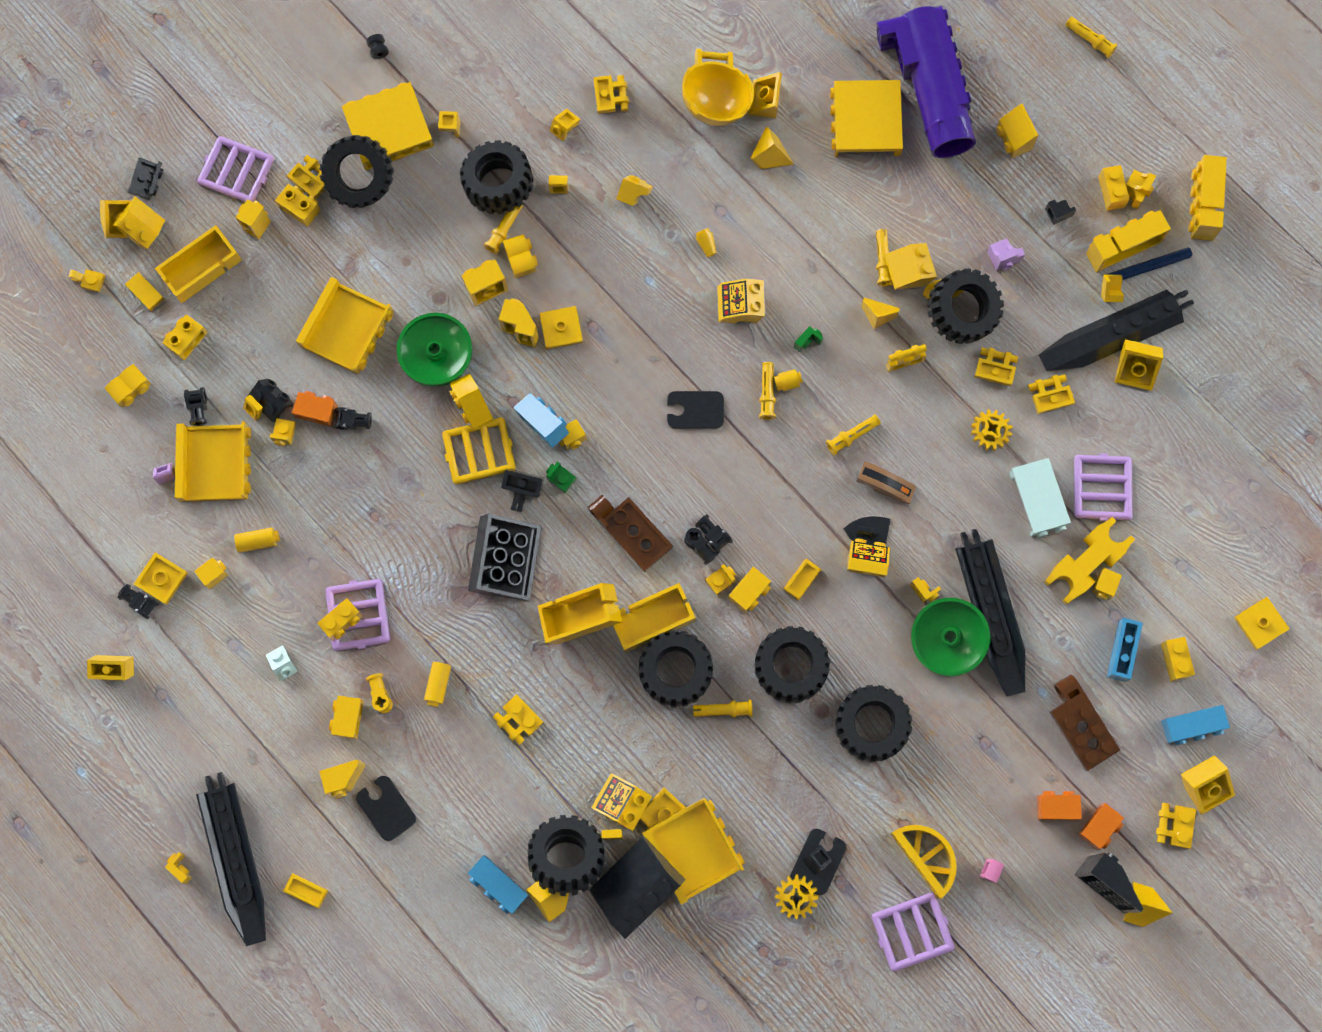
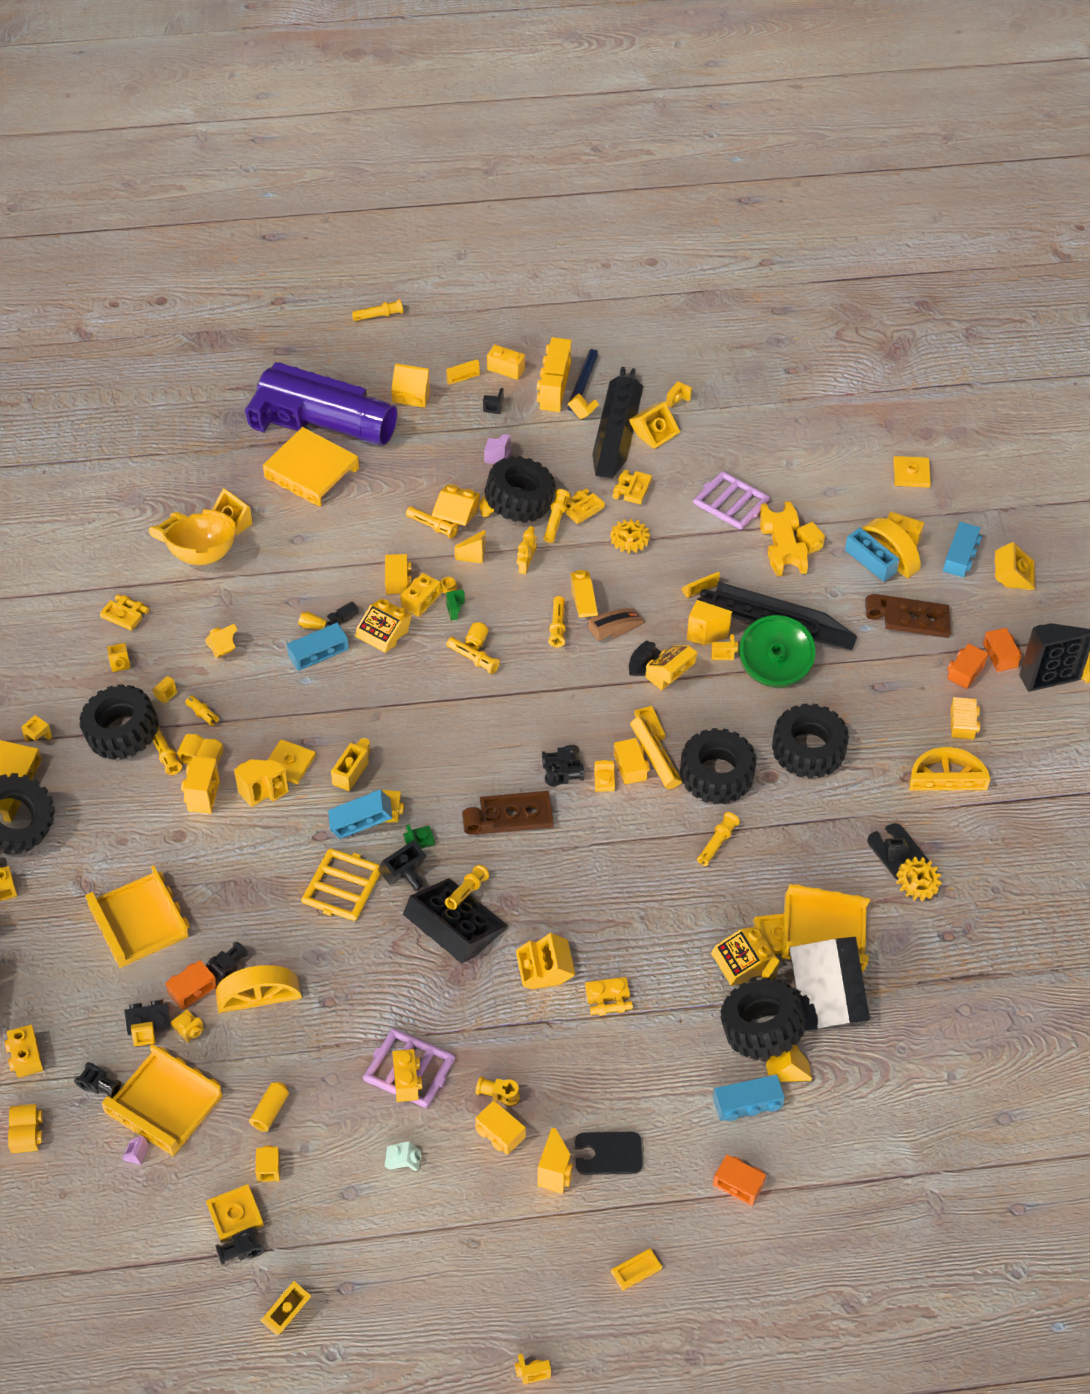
camera: 60 degrees left, 25 degrees down
(233, 859) = (560, 1310): black hinge -> none
(343, 461) = (257, 987): none -> yellow window
(424, 921) = (739, 1179): none -> orange brick
(434, 349) = (224, 858): green dish -> none
(437, 684) = (526, 1037): yellow brick -> none
(469, 398) = (295, 854): yellow brick -> none
(511, 652) = (545, 962): none -> yellow piece
(542, 547) = (471, 883): none -> yellow pin
(559, 226) = (202, 710): none -> yellow pin
(579, 613) = (556, 880): yellow piece -> none
(587, 378) = (351, 765): none -> yellow hinge
(653, 616) = (599, 839): yellow piece -> none
(675, 642) = (657, 826): black tyre -> none
(684, 265) = (317, 646): none -> dark azure brick
(701, 409) = (447, 708): black piece -> none
(733, 260) = (343, 613): none -> black bar
(770, 152) = (278, 538): yellow slope -> none
(771, 605) = (656, 753): none -> yellow brick
(797, 305) = (420, 594): none -> yellow brick
(804, 271) = (397, 573): none -> yellow brick
(825, 320) = (448, 584): none -> yellow plate
(890, 437) = (583, 593): none -> yellow slope
(912, 959) = (997, 844): lavender bar -> none
(935, 559) = (708, 623): none -> yellow slope
(972, 351) = (558, 508): none -> yellow pin
(983, 524) = (704, 583): none -> yellow slope
(991, 870) = (988, 738): bright pink brick -> none
(997, 837) = (964, 718): none -> yellow brick
(1041, 497) = (710, 534): light aqua panel -> none
(1073, 160) = (462, 372): none -> yellow tile
(1139, 186) = (520, 343): yellow brick -> none
(1148, 659) = (897, 542): none -> yellow window
(1182, 825) = (1038, 605): yellow plate -> none
(1189, 358) = (677, 392): none -> yellow bracket
(1207, 196) = (556, 311): yellow piece -> none

